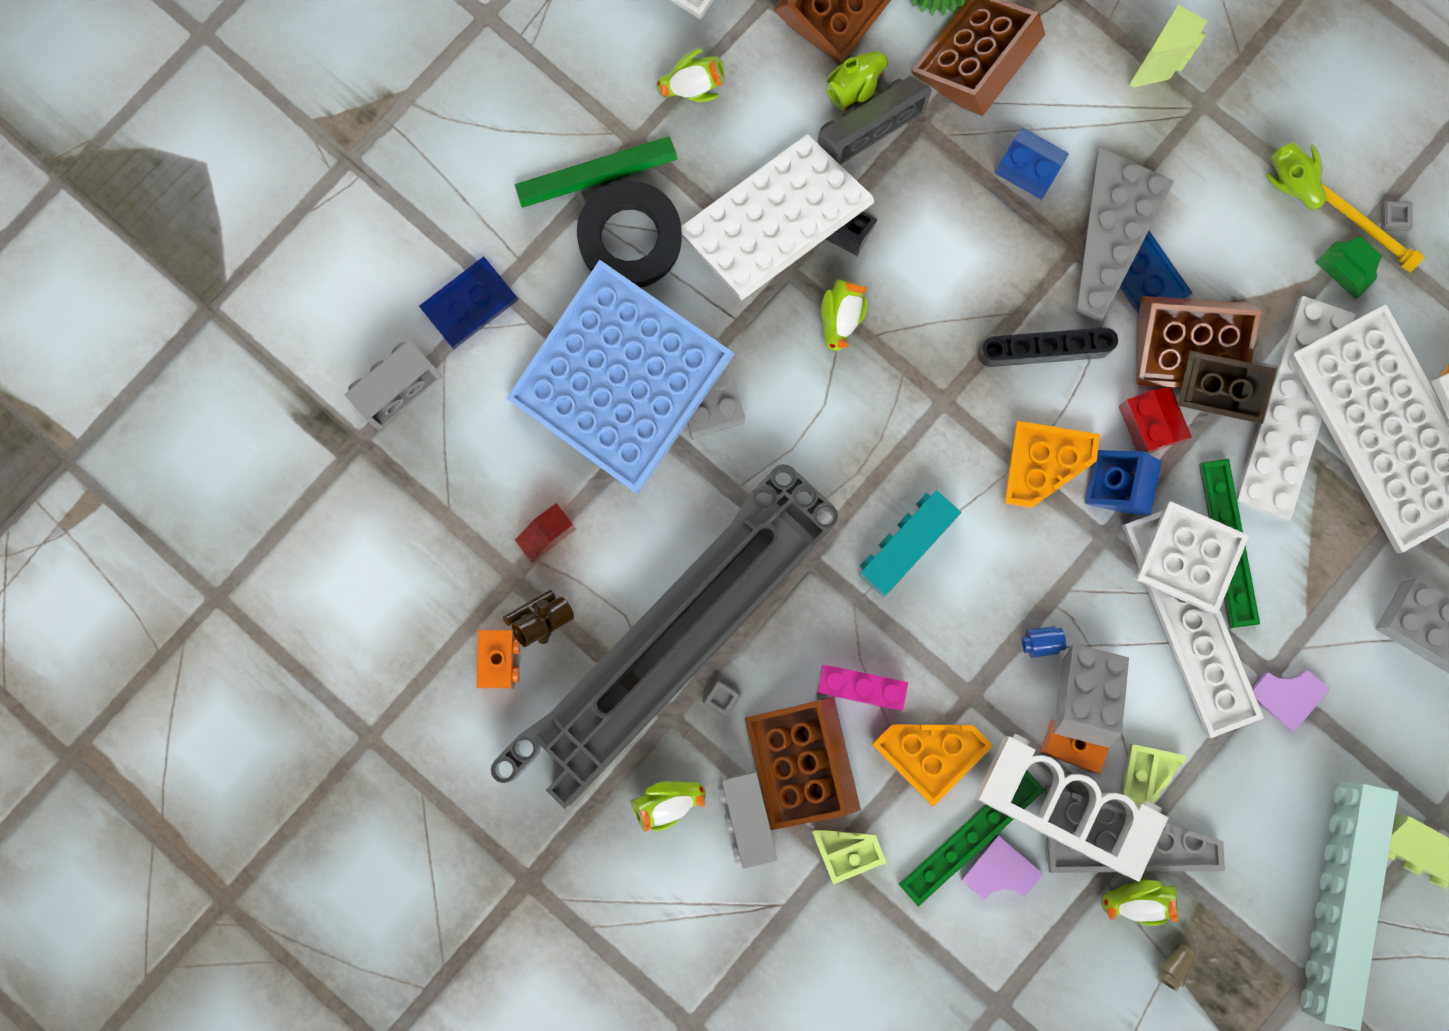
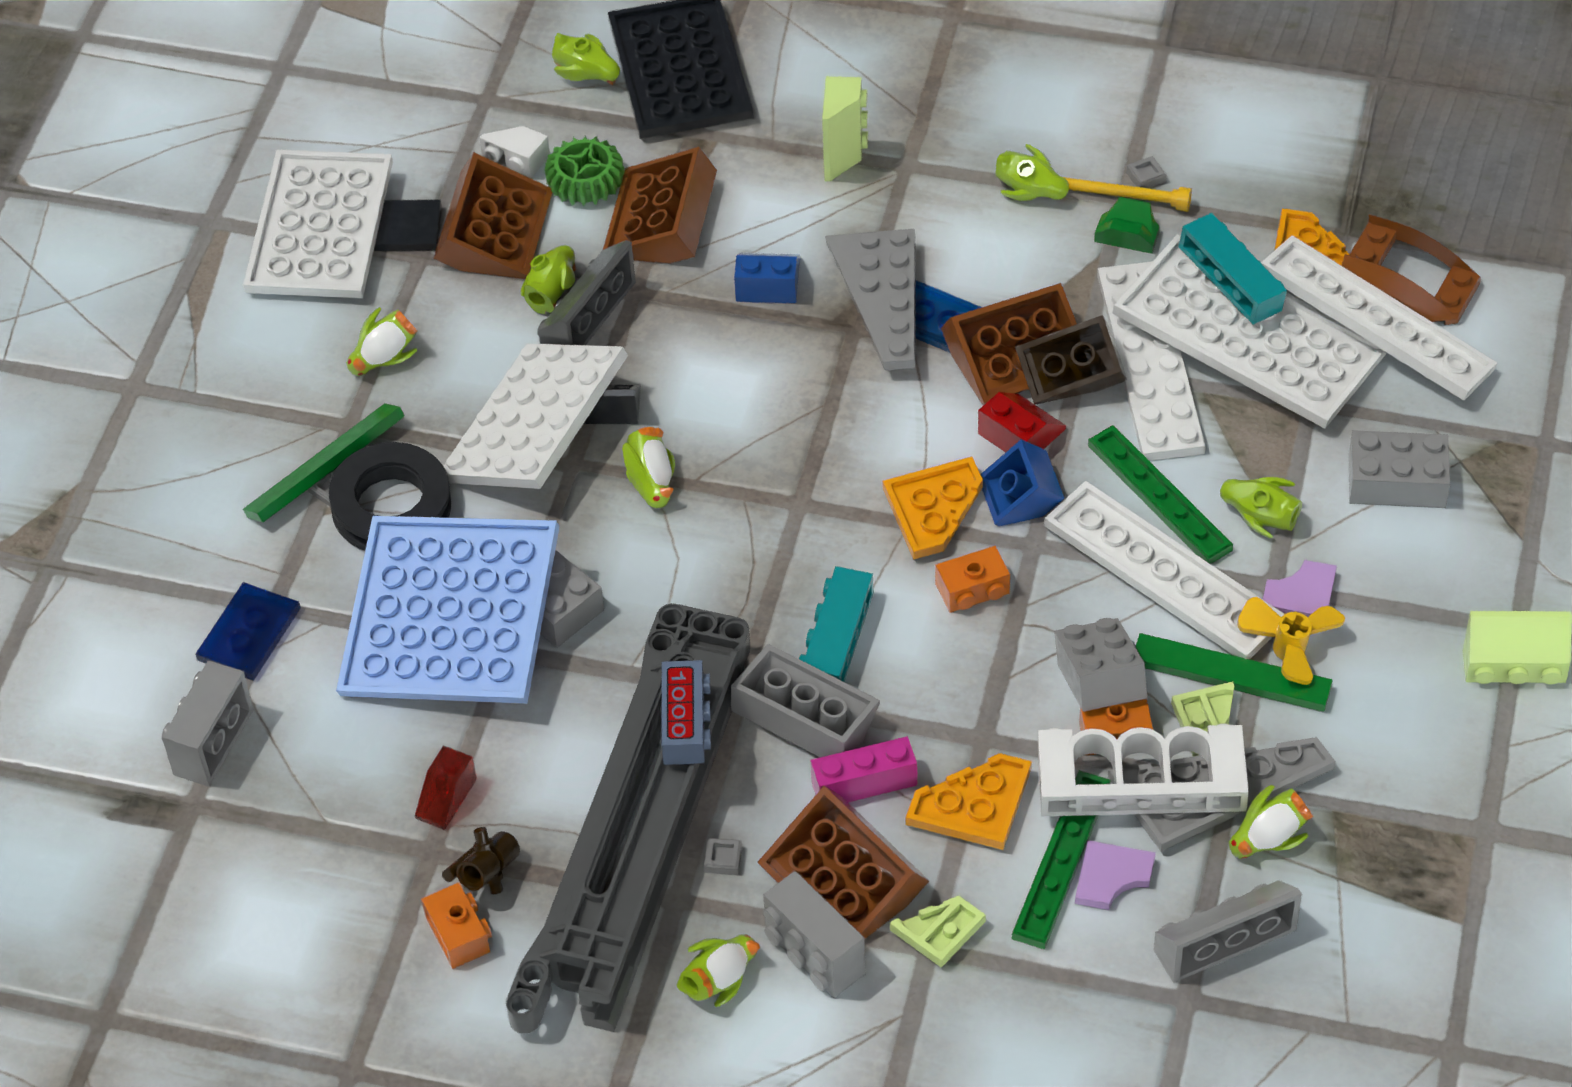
camera: 25 degrees left, 30 degrees down
(742, 590) = (685, 712): none -> sand blue brick
(847, 605) = (802, 703): none -> light grey slope
(1038, 551) = (972, 579): none -> orange brick
(1044, 641) = (1027, 652): blue brick -> none
(1058, 339) = (874, 410): black beam -> none
(1060, 974) = (1228, 929): none -> light grey slope
(1176, 967) = (1344, 872): dark tan cone -> none
(1192, 557) = (1126, 511): white plate -> none
(1193, 741) = (1220, 668): none -> green tile
(1241, 715) = (1289, 633): none -> yellow piece
(1305, 602) = (1263, 503): none -> lime animal
(1349, 904) = (1473, 727): light aqua brick -> none
(1412, 368) = (1232, 268): none -> teal brick

